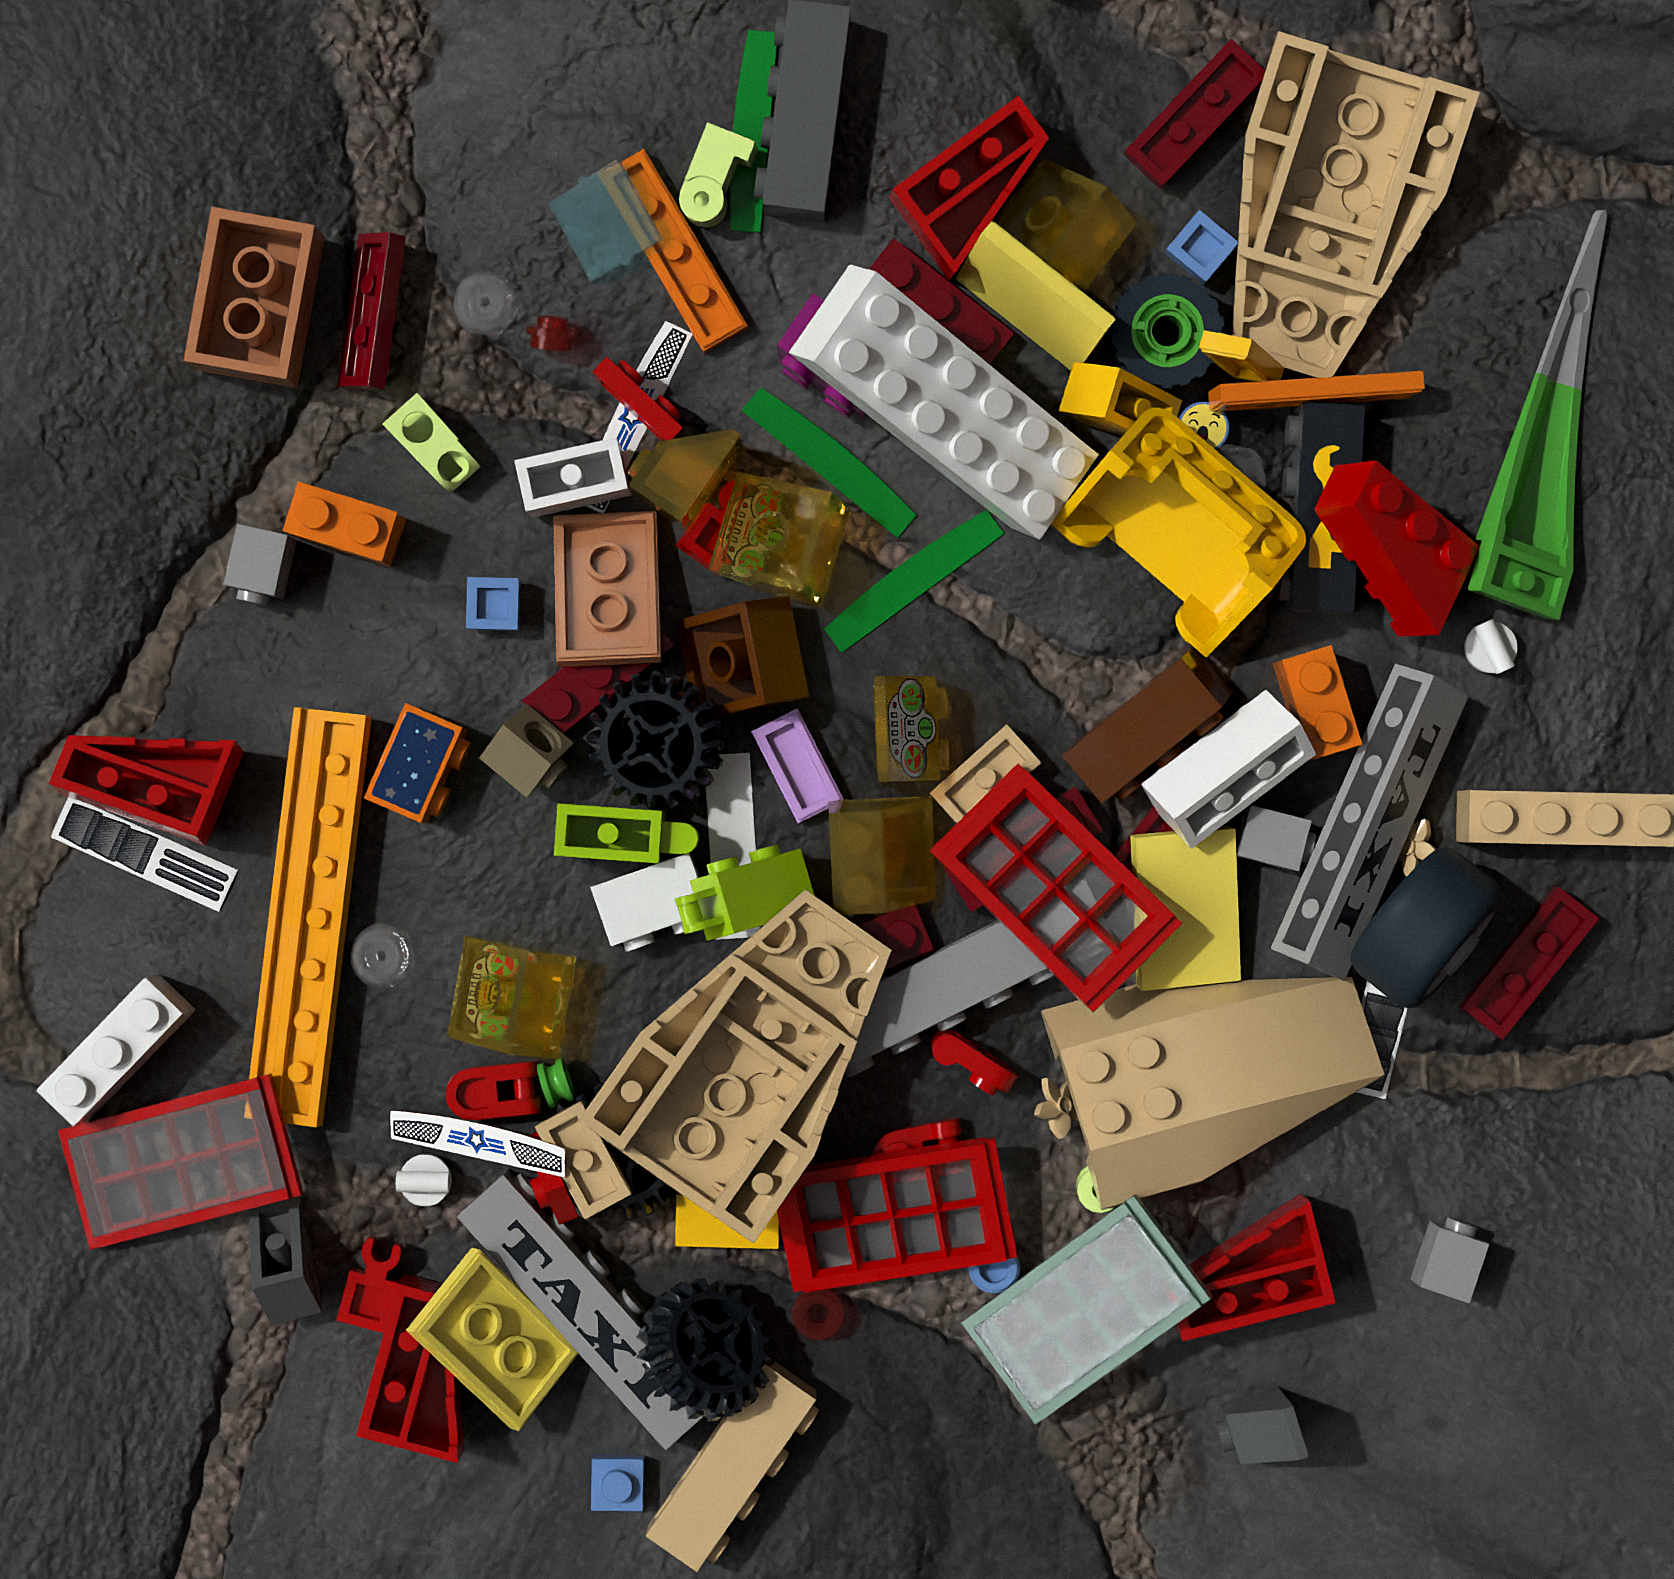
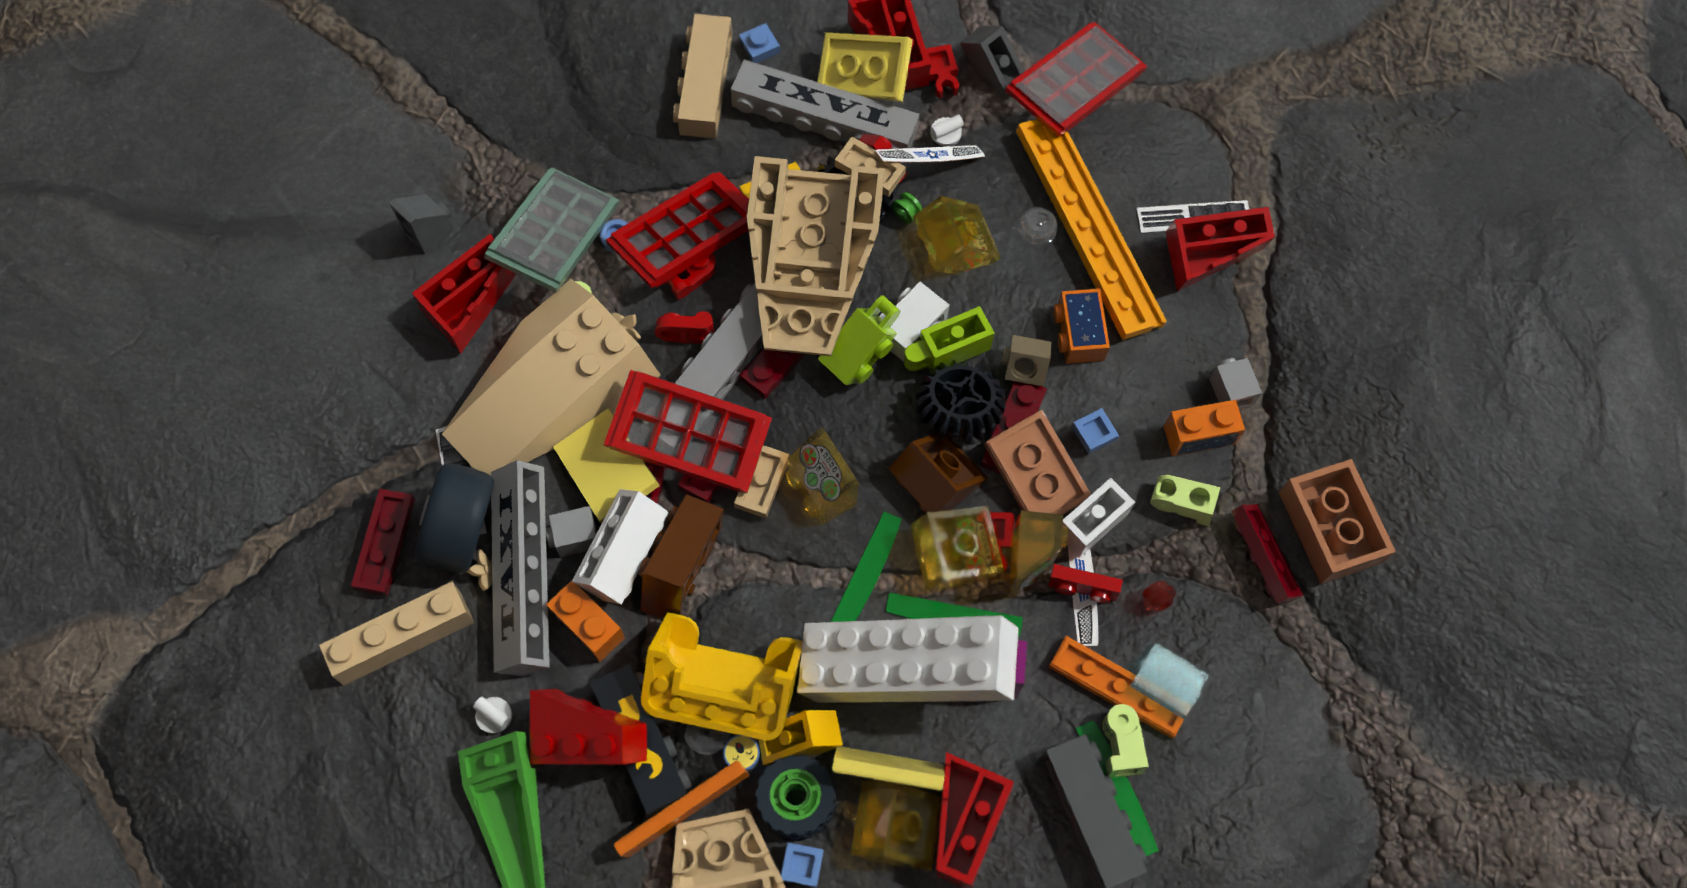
camera: 150 degrees right, 20 degrees down
(115, 1050) = (1144, 111): white brick -> none
(476, 1095) = (944, 181): red plate -> none
(490, 319) = (1199, 603): clear plate -> none
(677, 1337) = (754, 100): black gear -> none
(731, 815) = (894, 392): white sticker -> none
(797, 765) = (872, 435): lavender tile -> none
(818, 1329) = (696, 160): clear red plate -> none
(881, 854) = (799, 404): clear yellow slope -> none
(943, 301) = (936, 737): dark red plate -> none
(1240, 357) = (740, 798): yellow tile -> none
(1450, 1259) = (355, 357): light grey brick -> none

